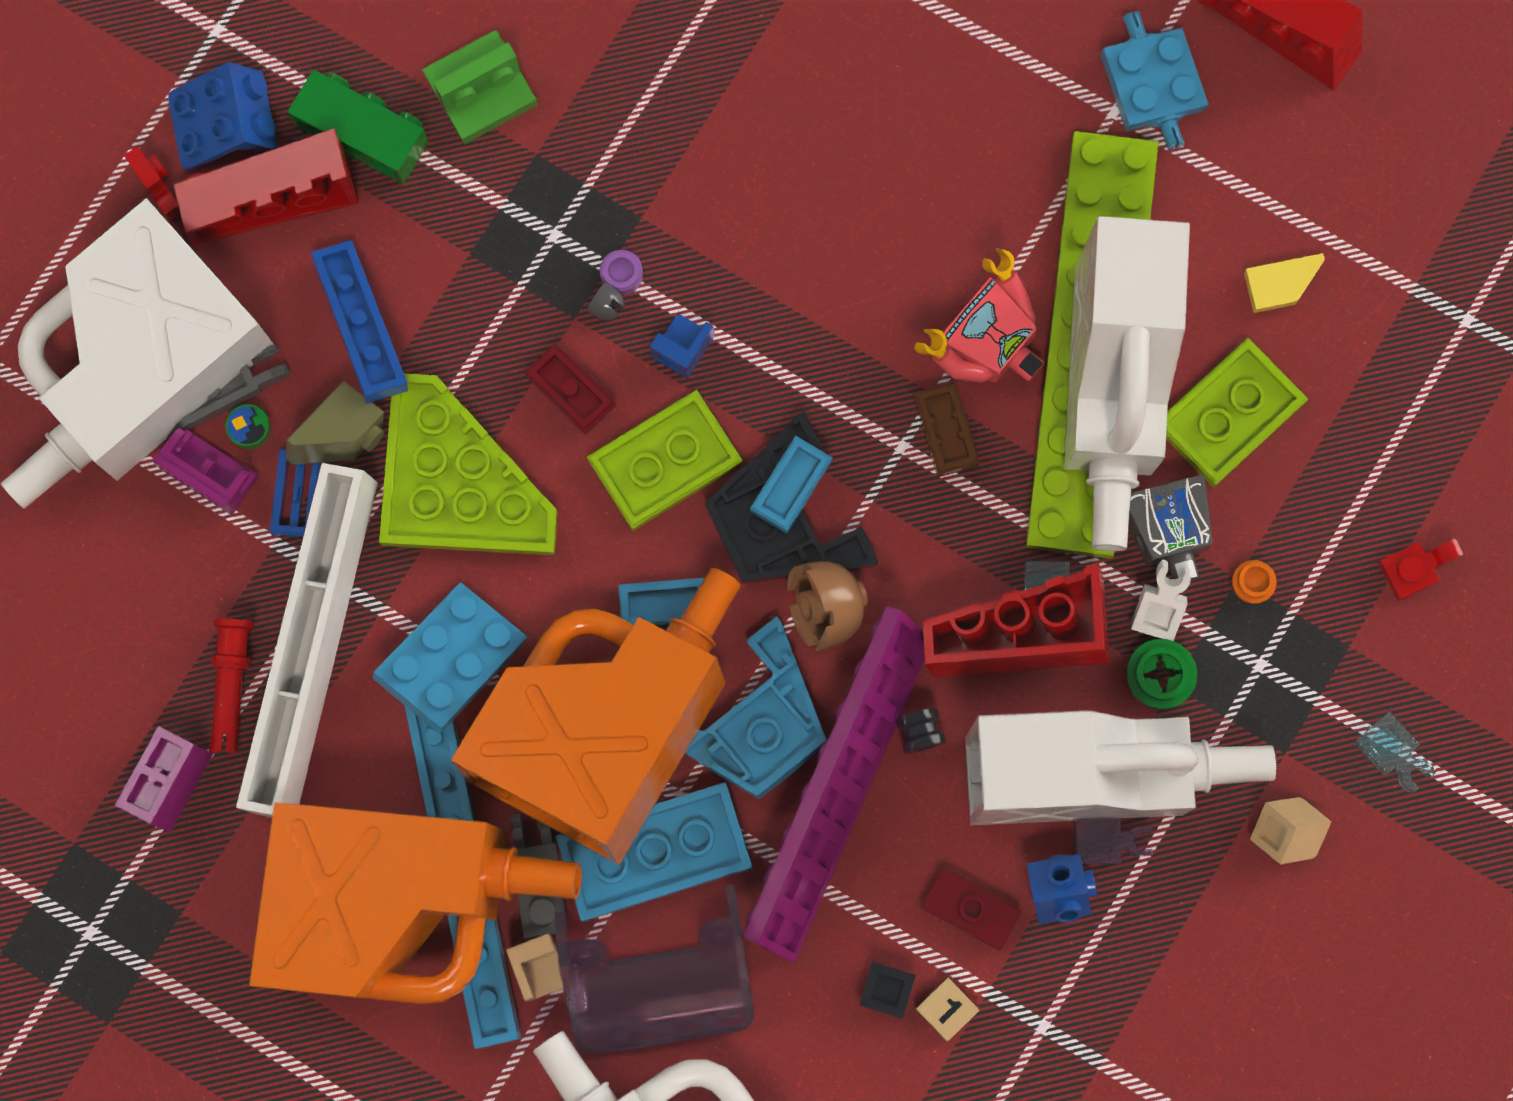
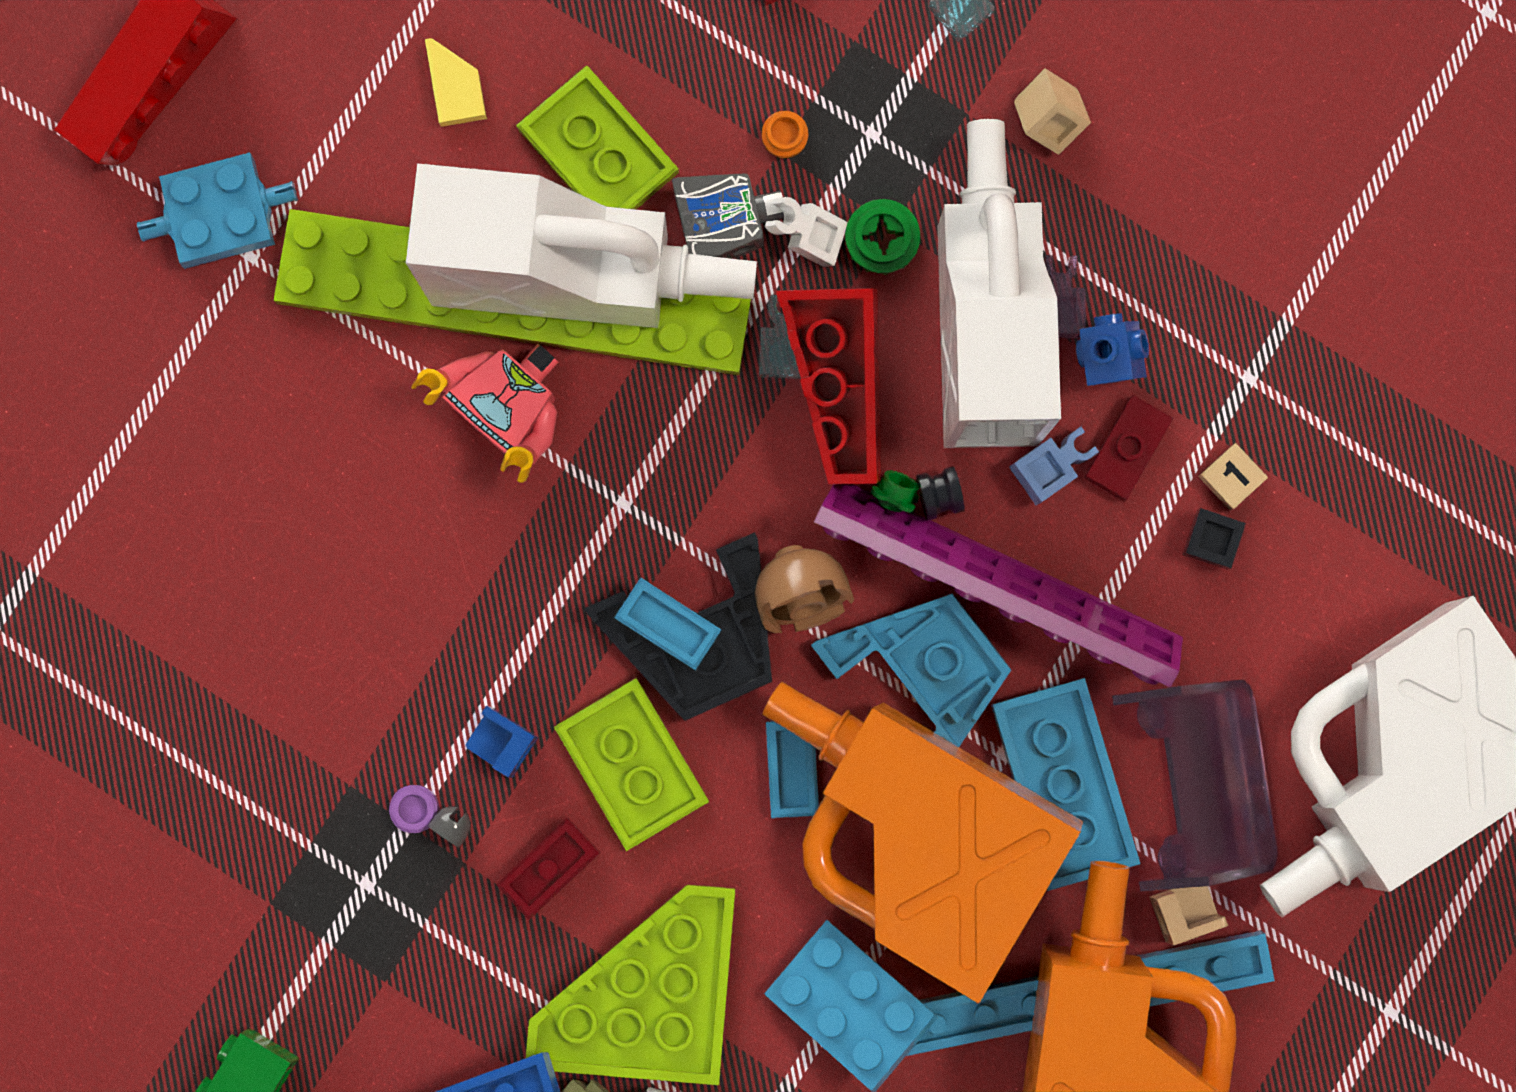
camera: 90 degrees left, 5 degrees up
(480, 86) = (188, 967): bright green bracket -> none
(537, 911) = (1069, 909): dark grey hinge -> none
(920, 690) = (896, 491): none -> green plate
(946, 429) = (608, 453): reddish brown plate -> none
(948, 832) = (1049, 468): none -> medium blue plate

